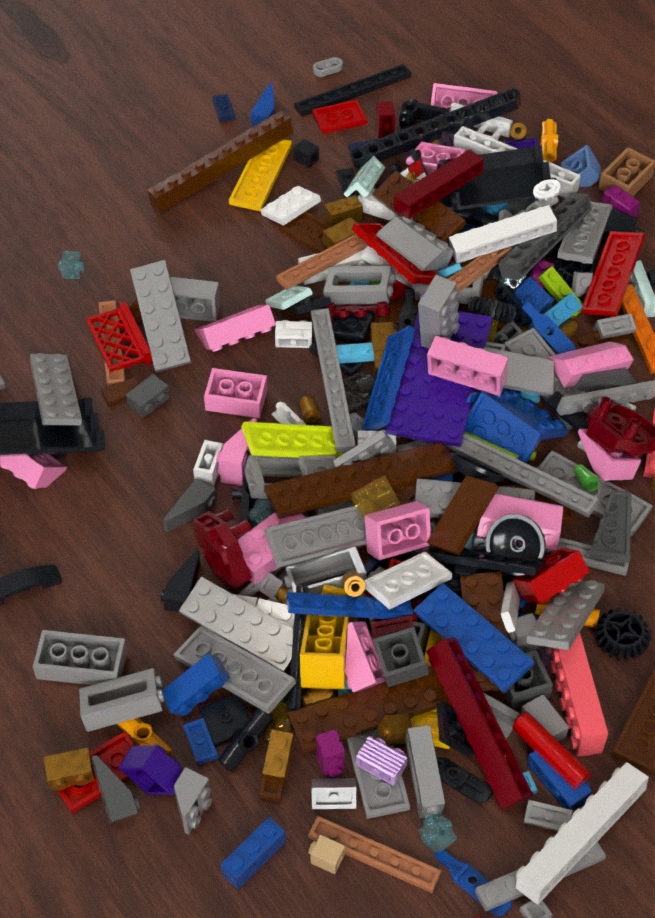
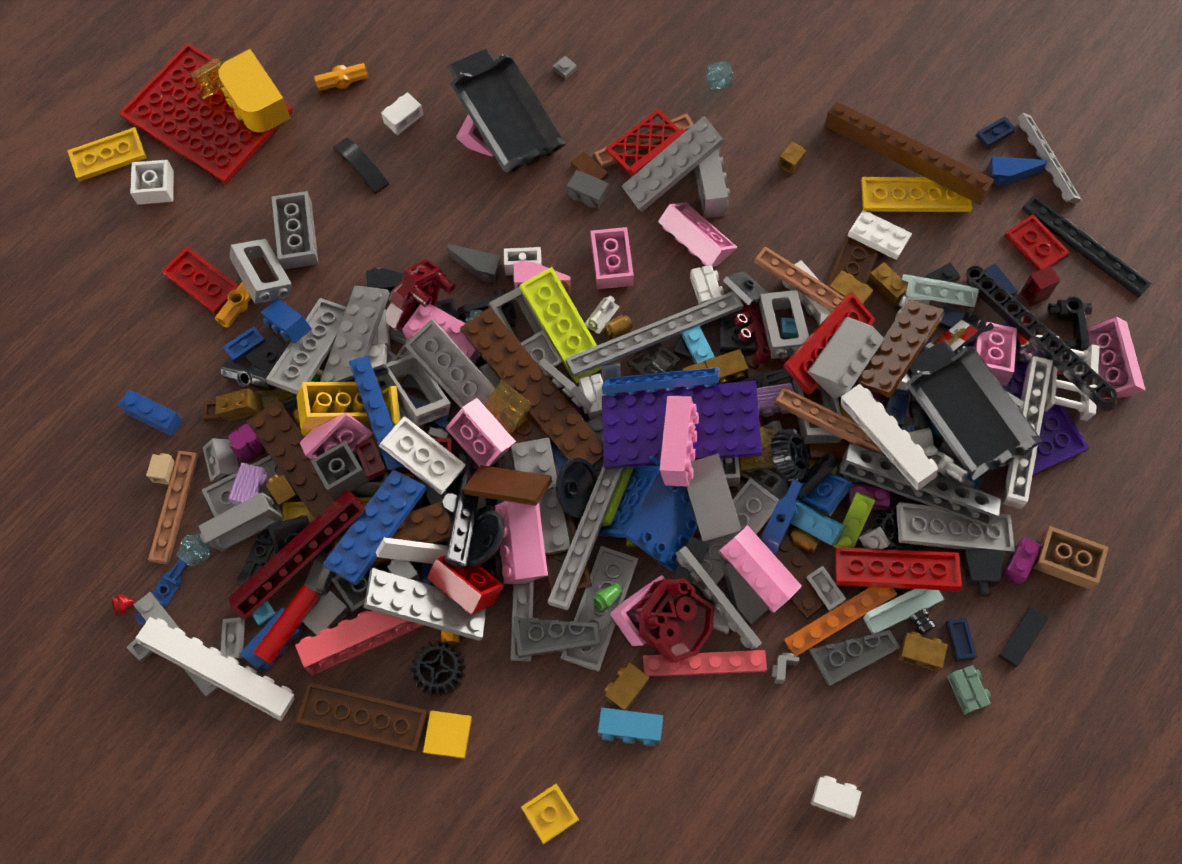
camera: 75 degrees right, 15 degrees up
(55, 389) = (561, 112): light grey plate -> none
(69, 769) = (189, 255): pearl gold brick -> none
(115, 795) = (177, 295): dark grey slope -> none
(151, 769) = (197, 313): dark purple brick -> none
(186, 240) = (792, 158): none -> pearl gold brick
(192, 798) = (182, 350): light grey slope -> none
(288, 84) = (1044, 152): none -> light grey plate
(288, 297) = (744, 265): light aqua tile -> none
(306, 153) = (961, 226): black brick -> none
(327, 67) = (1108, 210): light grey plate -> none
(351, 578) = (397, 407): brick -> none
(438, 184) = (928, 353): dark red brick -> none
(438, 311) = (717, 391): light grey brick -> none
(449, 270) = (825, 399): medium azure tile -> none
(522, 135) = (1088, 427): pearl gold brick -> none
(540, 190) = (968, 458): white gear -> none
(549, 140) = (1094, 463): light orange piece -> none
(585, 164) = (1061, 506): medium blue slope -> none

